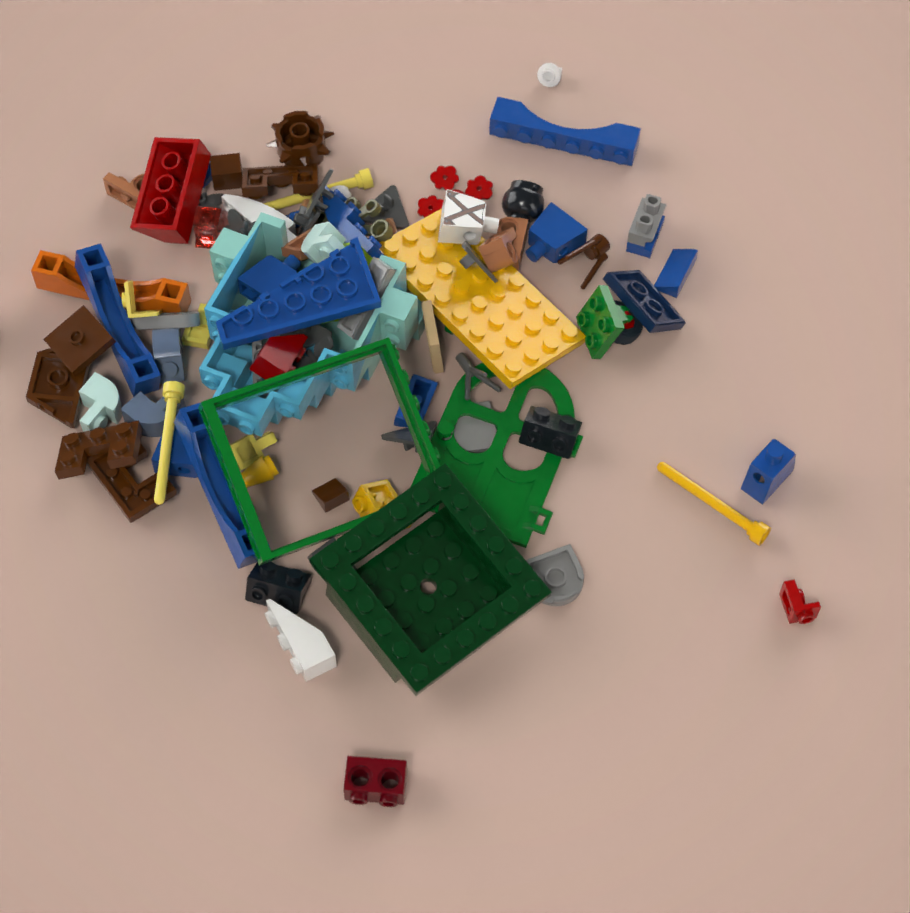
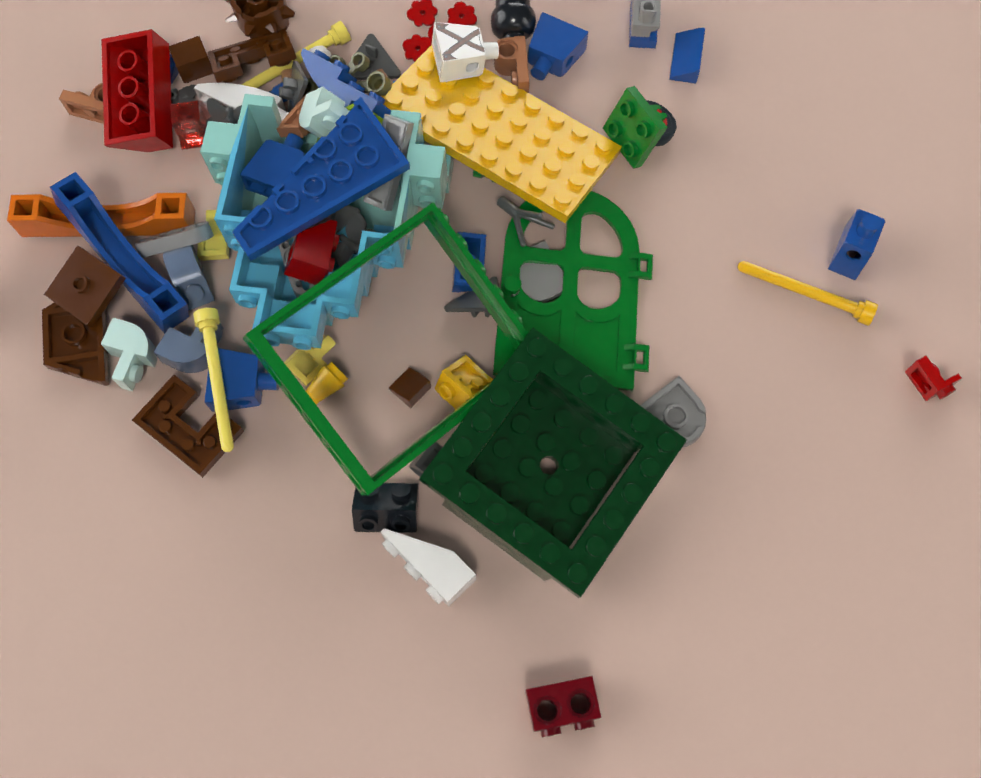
camera: 15 degrees left, 10 degrees up
(118, 441) = (162, 388): reddish brown plate -> none
(128, 302) = (128, 230): light yellow bracket -> none
(210, 474) = (281, 411): blue arch -> none
(317, 196) = (300, 56): dark grey piece -> none
(432, 336) = (466, 186): tan tile -> none
(473, 257) = (483, 90): dark grey piece -> none
(498, 250) = (508, 75): nougat plate -> none
(550, 432) = (621, 259): black bracket -> none
(593, 249) = (597, 52): reddish brown plant -> none
(644, 301) = (669, 94): dark blue tile -> none

